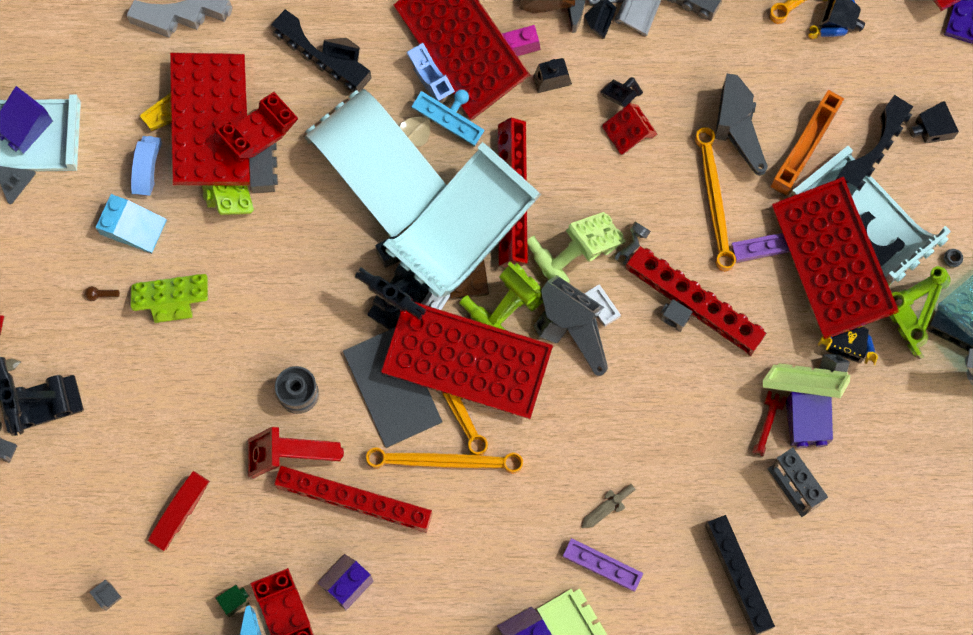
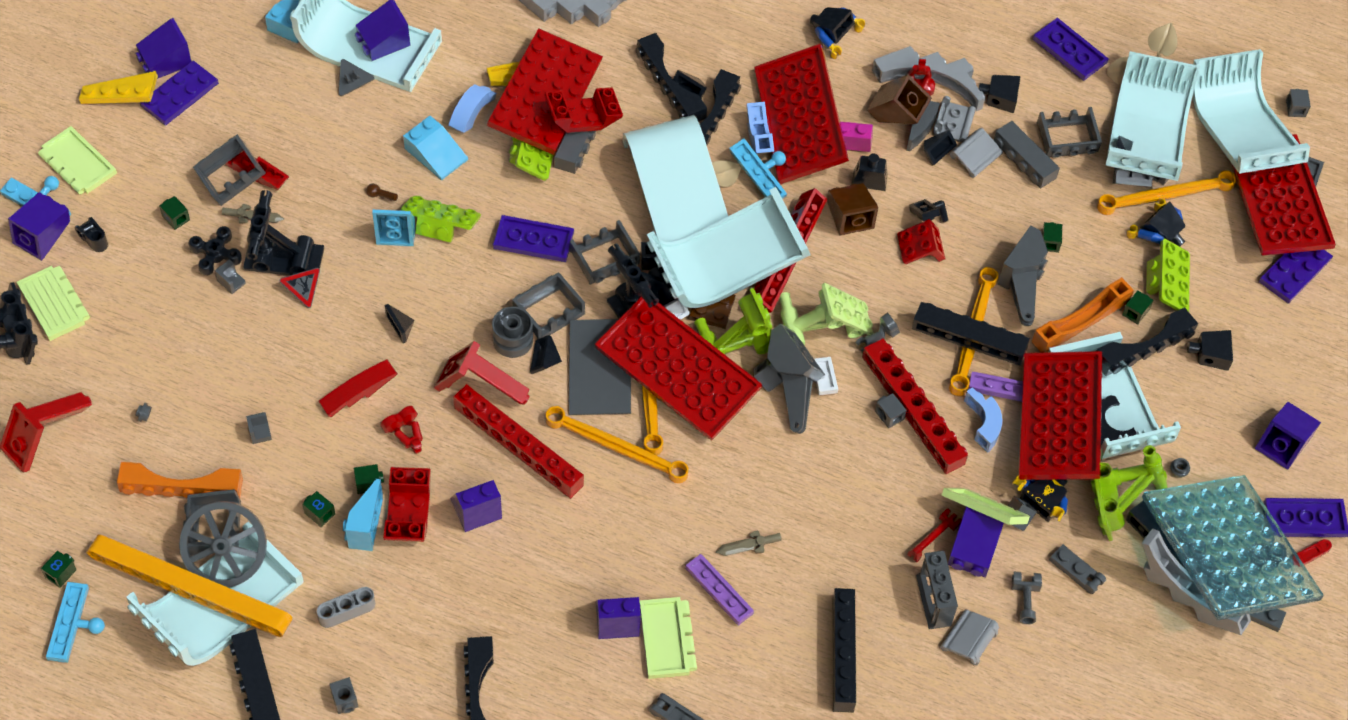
camera: 20 degrees right, 15 degrees down
(74, 427) = (302, 285): none -> piece
(133, 329) = (394, 227): none -> medium azure slope
(186, 423) = (401, 322): none -> black slope
(237, 522) = (404, 418): none -> red piece
(269, 280) = (533, 238): none -> dark purple plate
(301, 334) = (545, 289): none -> dark grey window
(334, 249) = (604, 236): none -> dark grey window
(336, 398) = (544, 354): none -> black slope
(375, 42) = (724, 90): none -> black arch
(551, 119) = (852, 208): none -> reddish brown slope
(717, 207) = (970, 333): none -> black brick
(745, 69) = (1052, 236): none -> dark green brick
(769, 283) = (990, 415): none -> light blue arch
(842, 510) = (970, 636): none -> light grey piece
(851, 110) = (1137, 307): none -> dark green brick
(866, 66) = (1170, 275): none -> lime bracket
(882, 466) = (1027, 616): none -> dark grey bar
(905, 400) = (1077, 569): none -> dark grey plate

